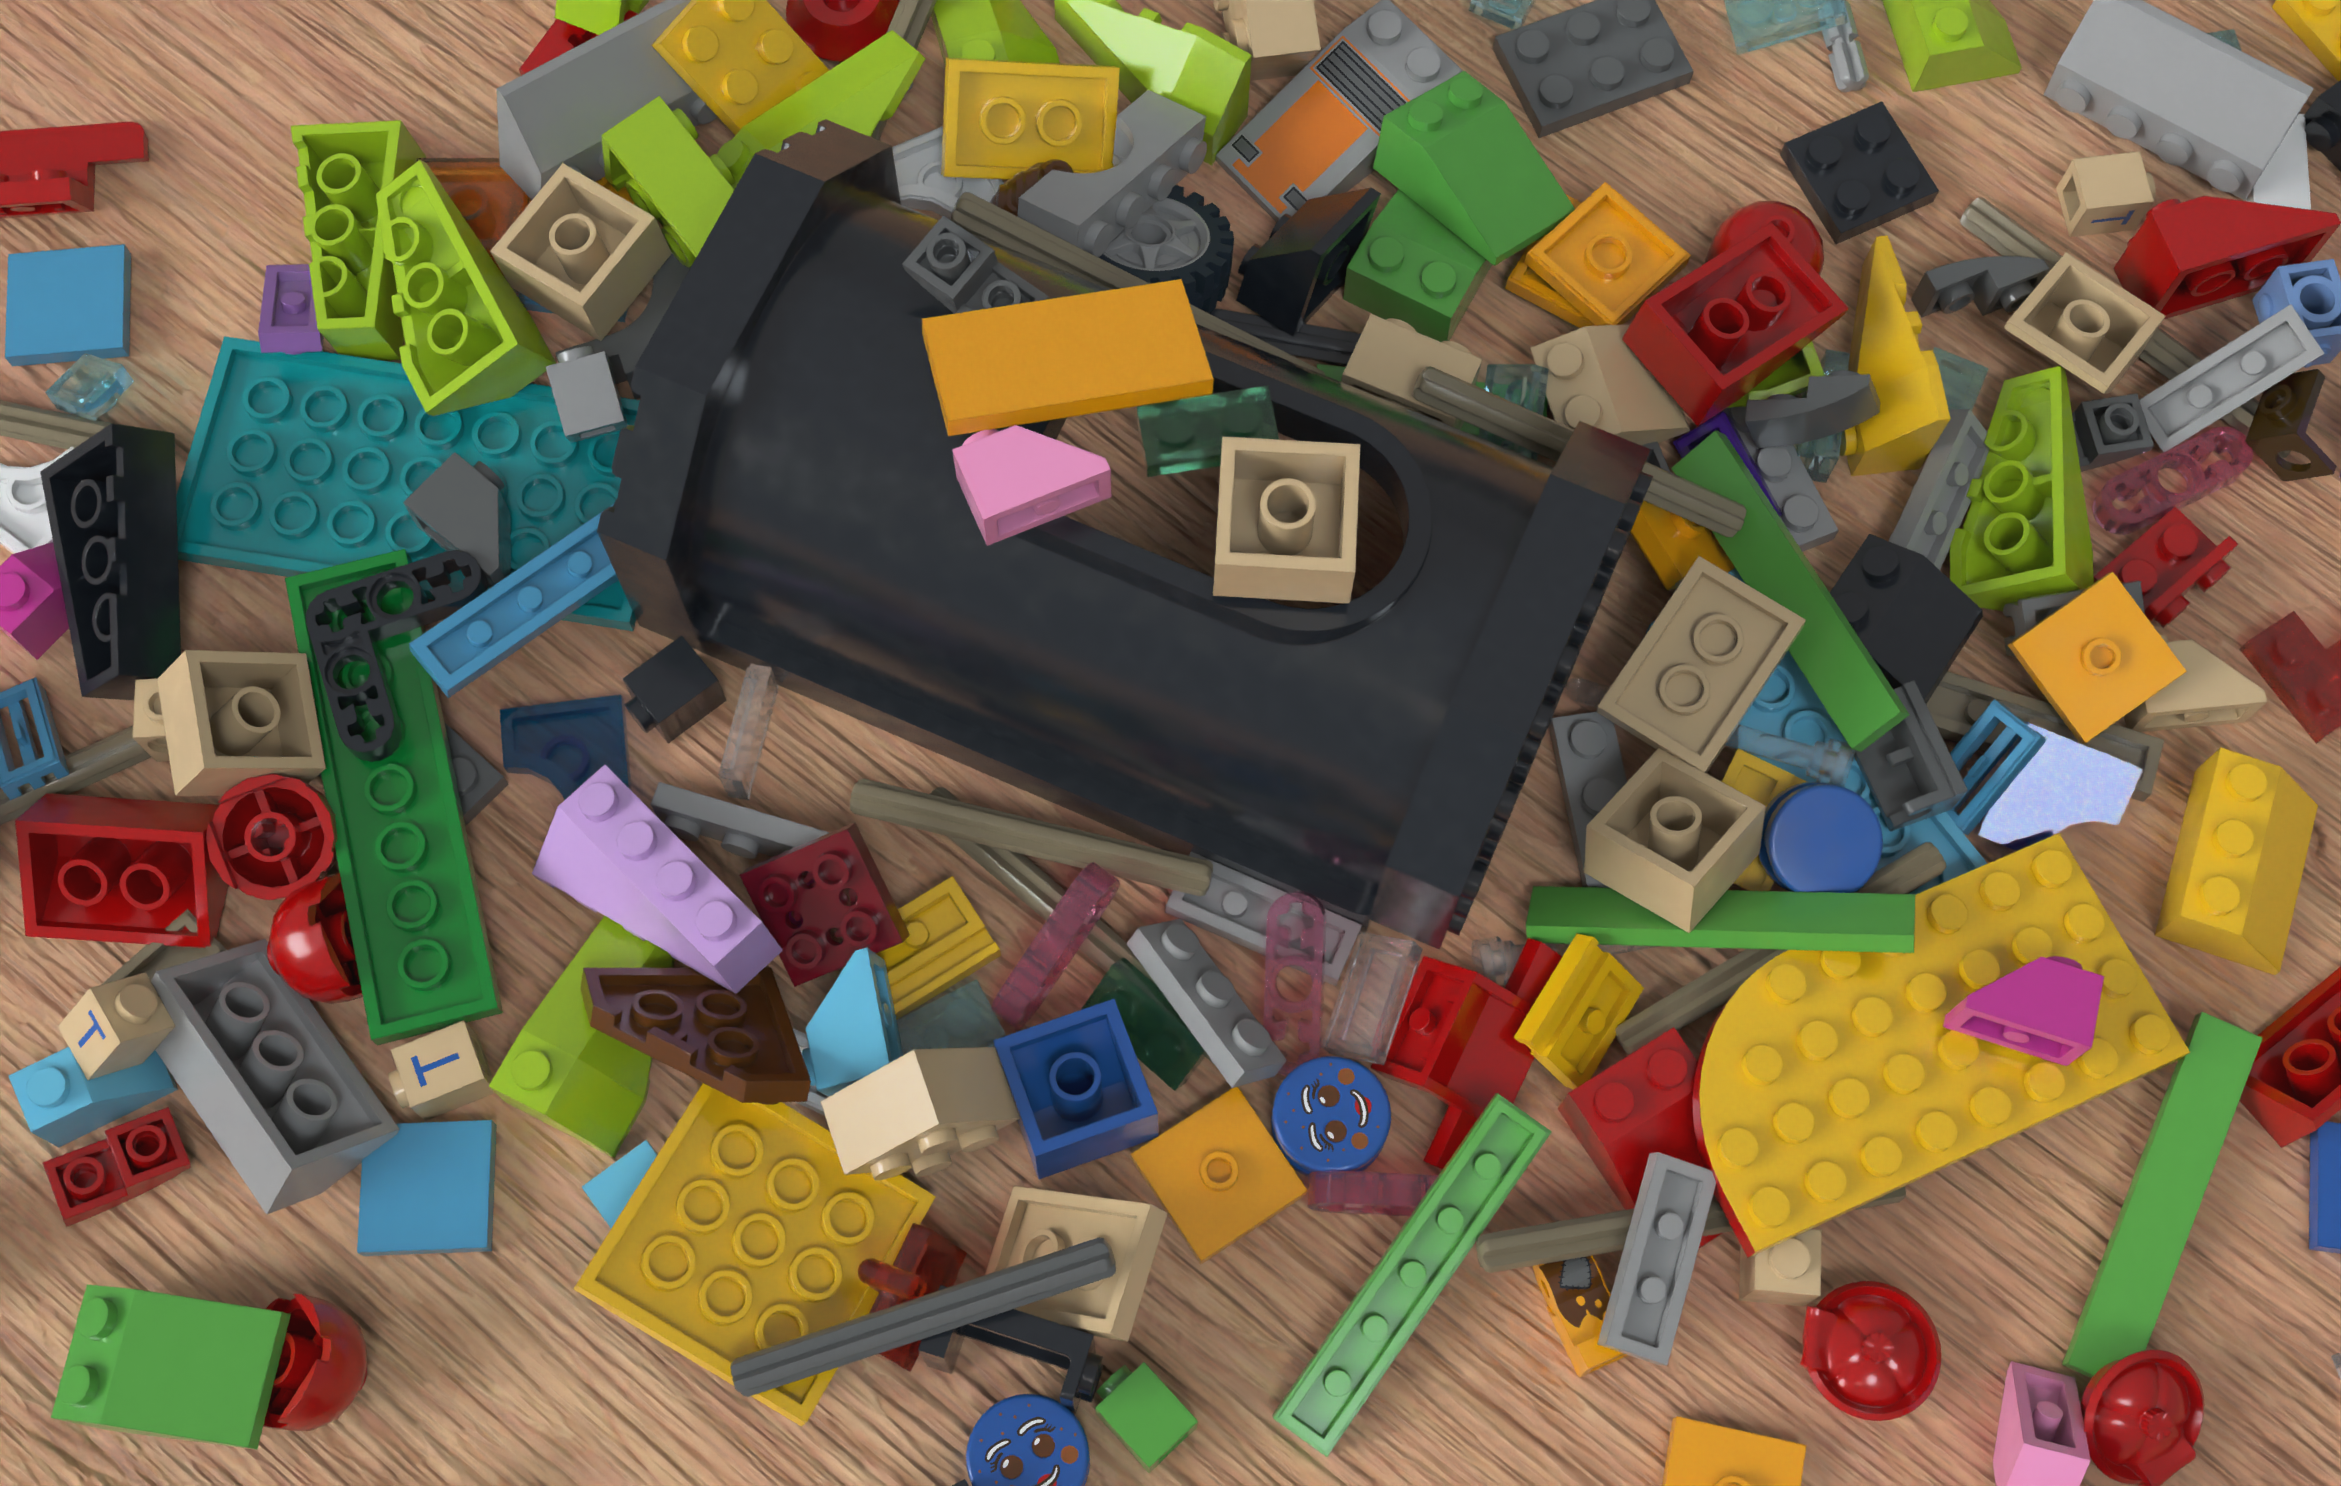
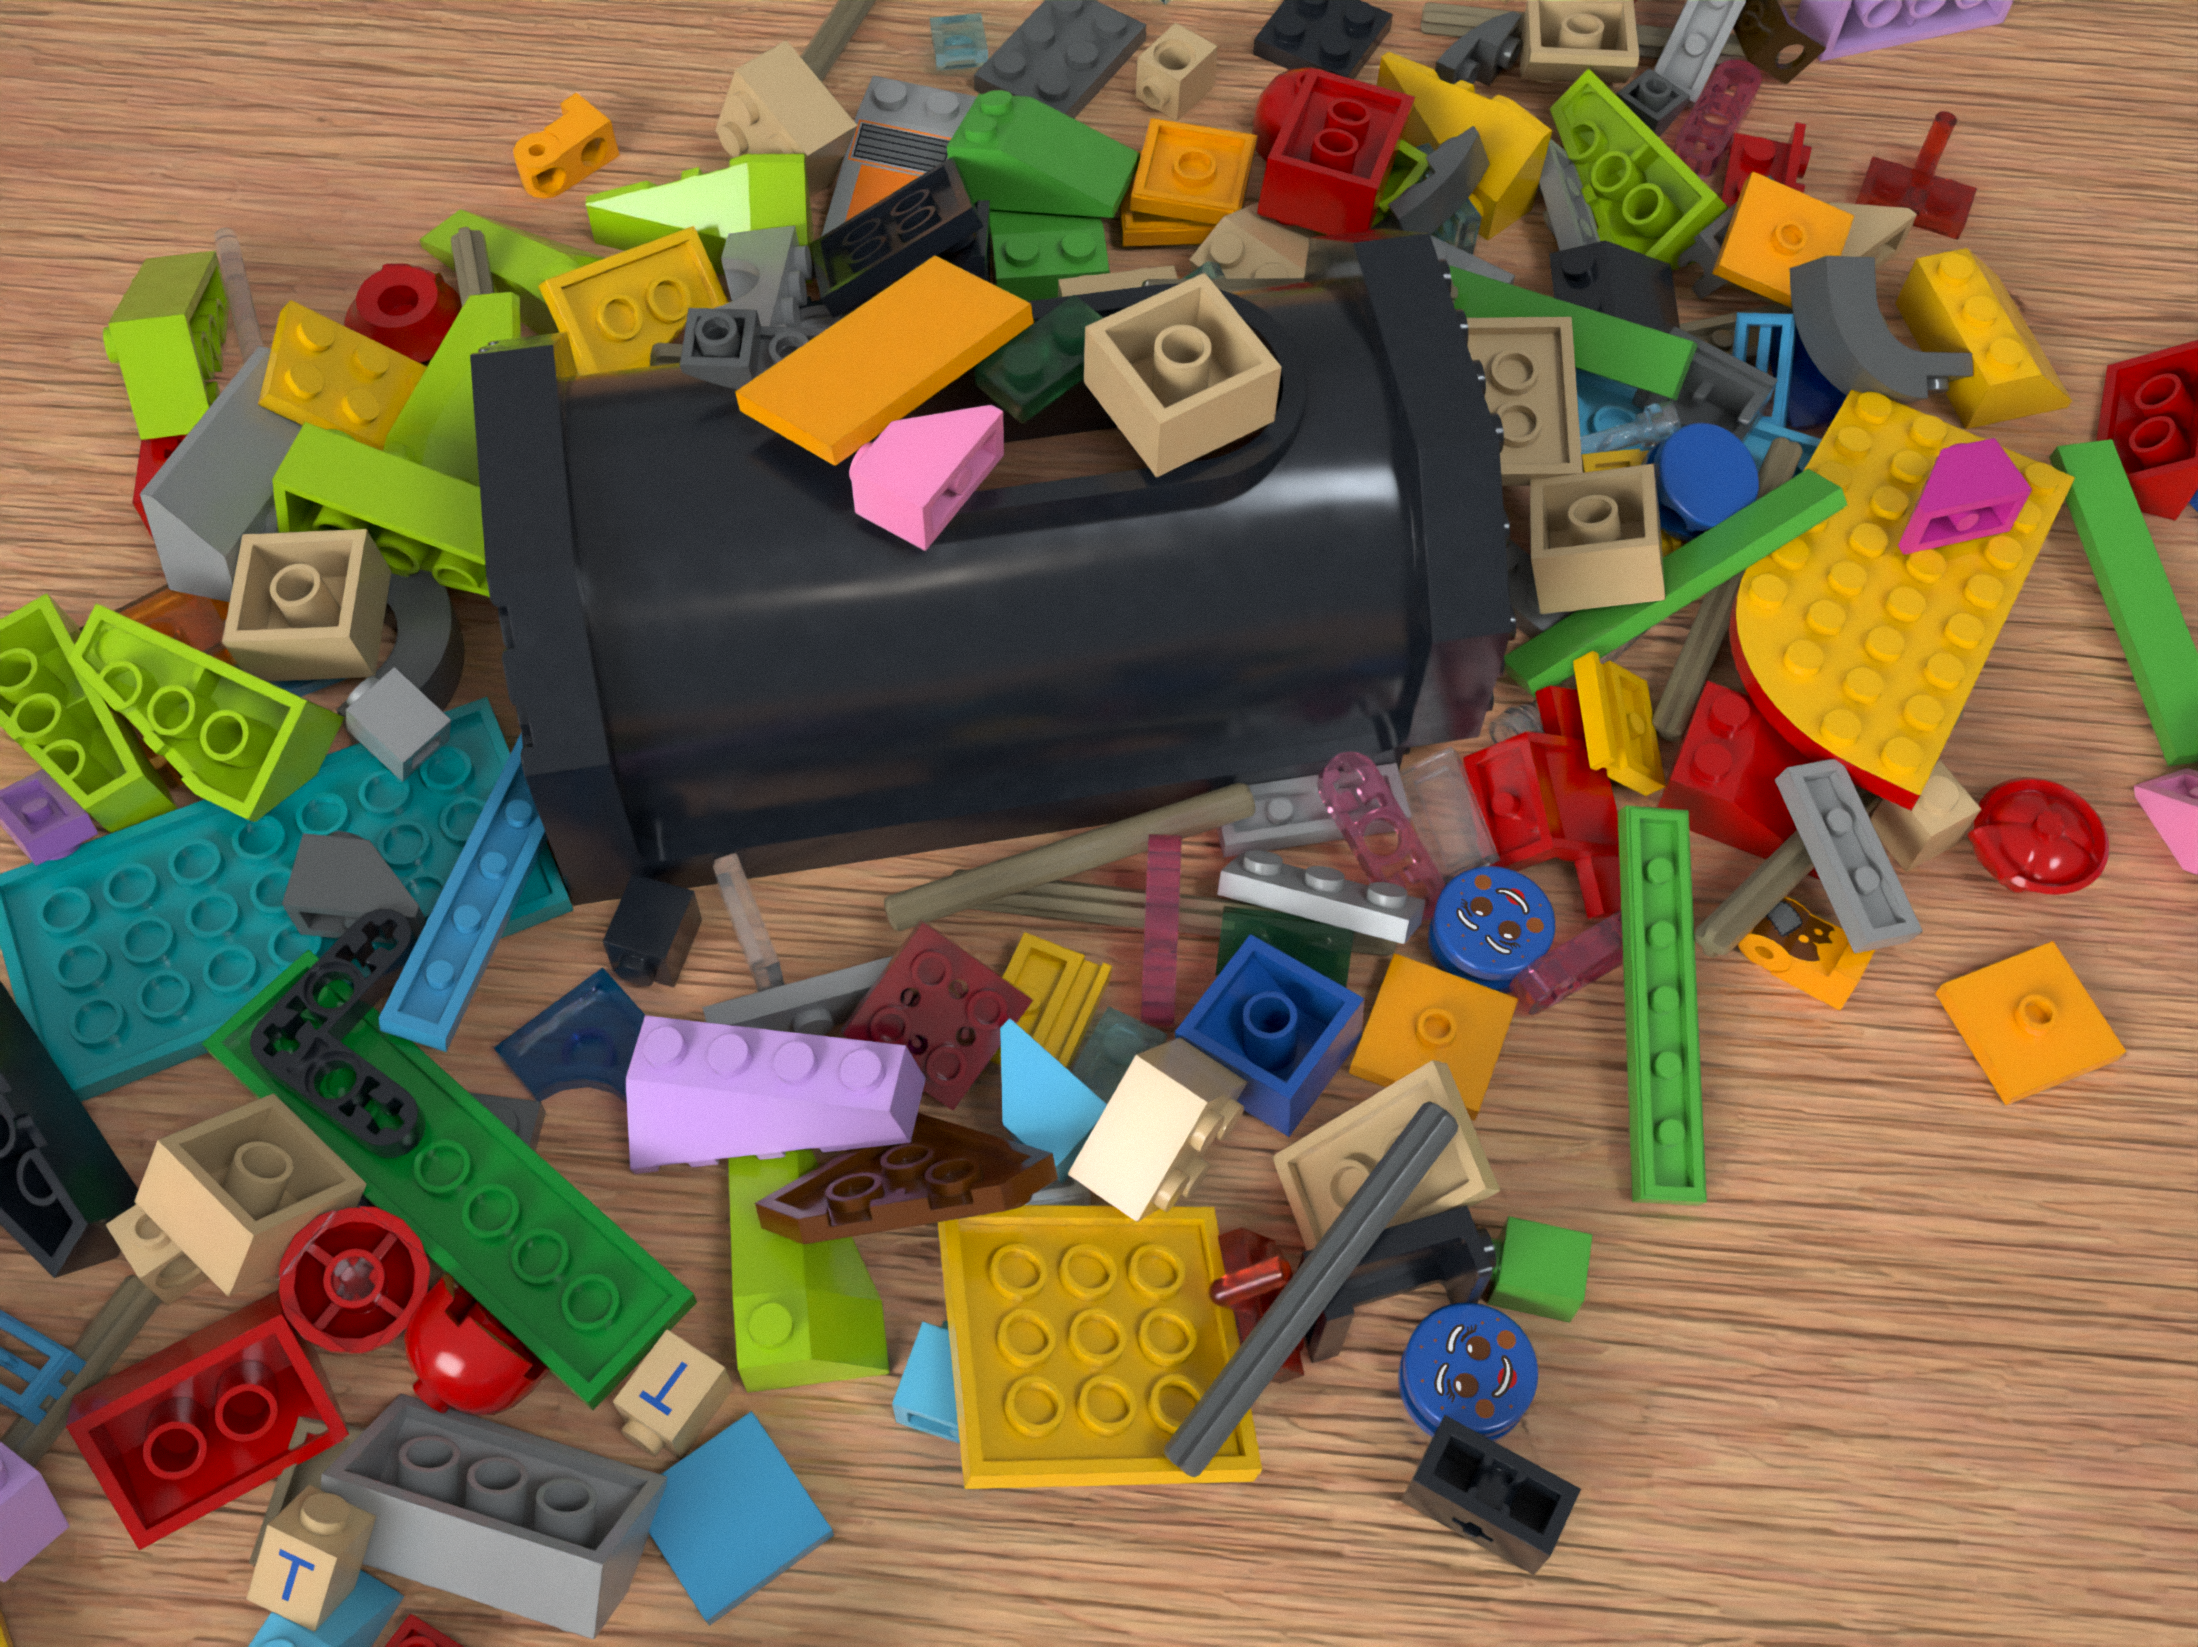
camera: 35 degrees left, 10 degrees down
(1277, 181) = (895, 237): none -> black plate
(1687, 119) = (1176, 71): none -> tan brick
(2070, 788) = (1849, 340): none -> dark grey arch

